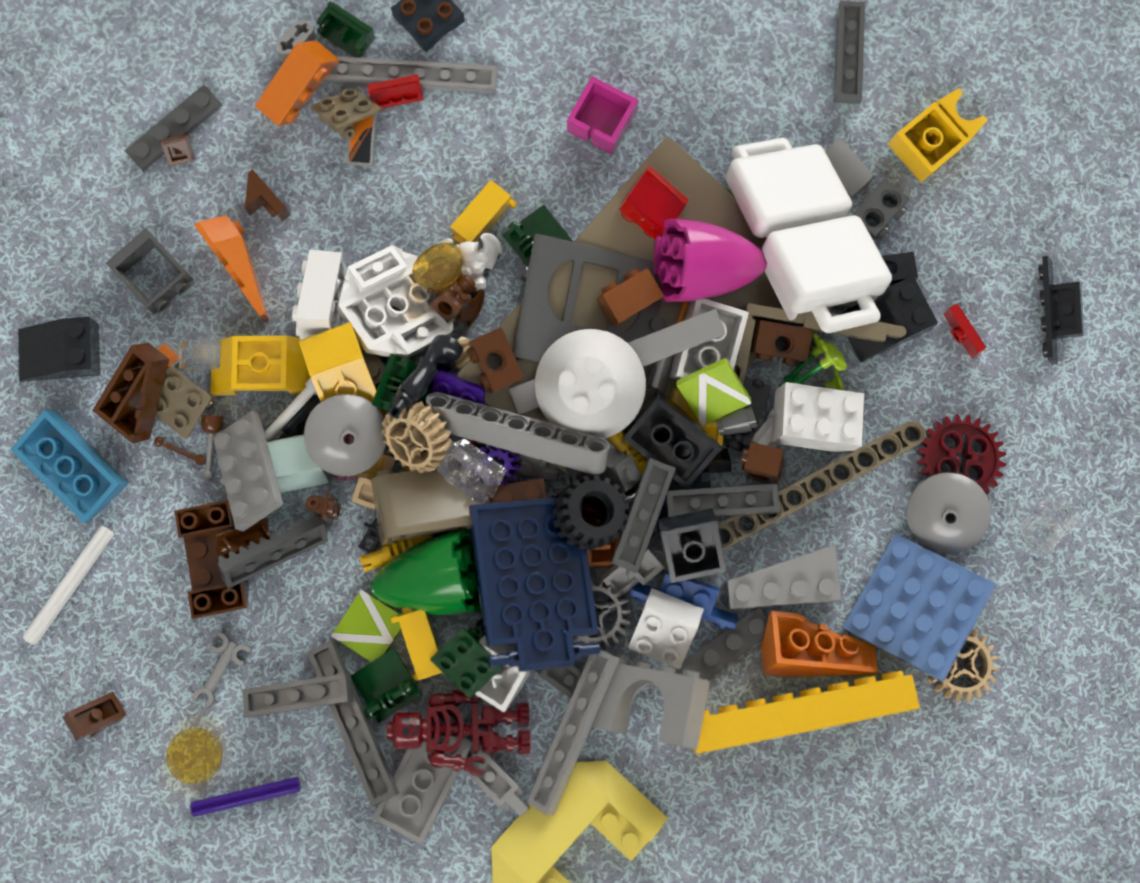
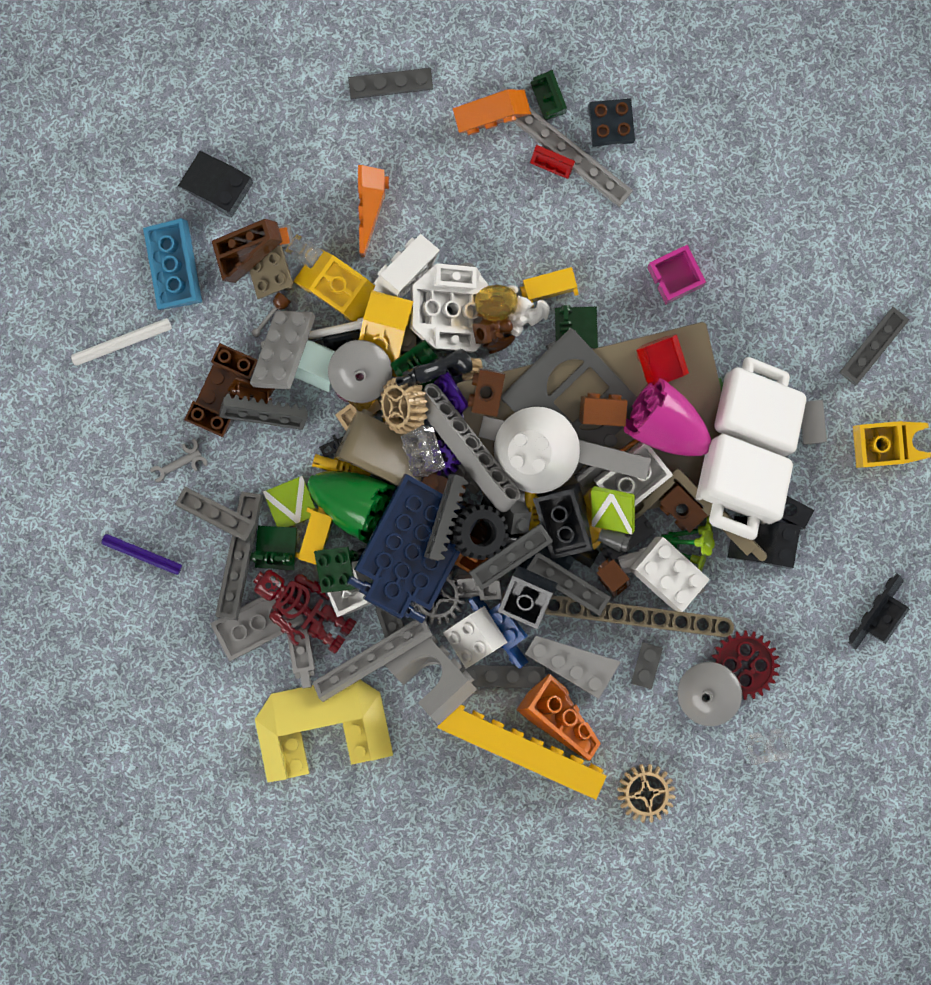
camera: 35 degrees right, 5 degrees up
(94, 716) = (82, 437): reddish brown slope -> none
(136, 250) = (304, 152): dark grey window -> none
(177, 150) = (382, 101): tile -> none
(194, 755) = (127, 506): clear yellow tile -> none
(199, 459) = (257, 318): reddish brown hinge -> none
(259, 195) = (415, 168): reddish brown slope -> none
(291, 37) = (510, 80): light grey beam -> none
(324, 507) = (316, 409): reddish brown hinge -> none
(344, 110) = (510, 152): dark tan hinge -> none
(362, 146) = (508, 177): slope -> none
(543, 522) = (444, 516): none -> dark grey gear
(862, 531) = (646, 665): none -> dark grey plate
(875, 209) = (811, 462): dark grey brick -> none
(919, 607) = (645, 739): medium blue plate -> none
(963, 331) = (808, 584): red plate -> none

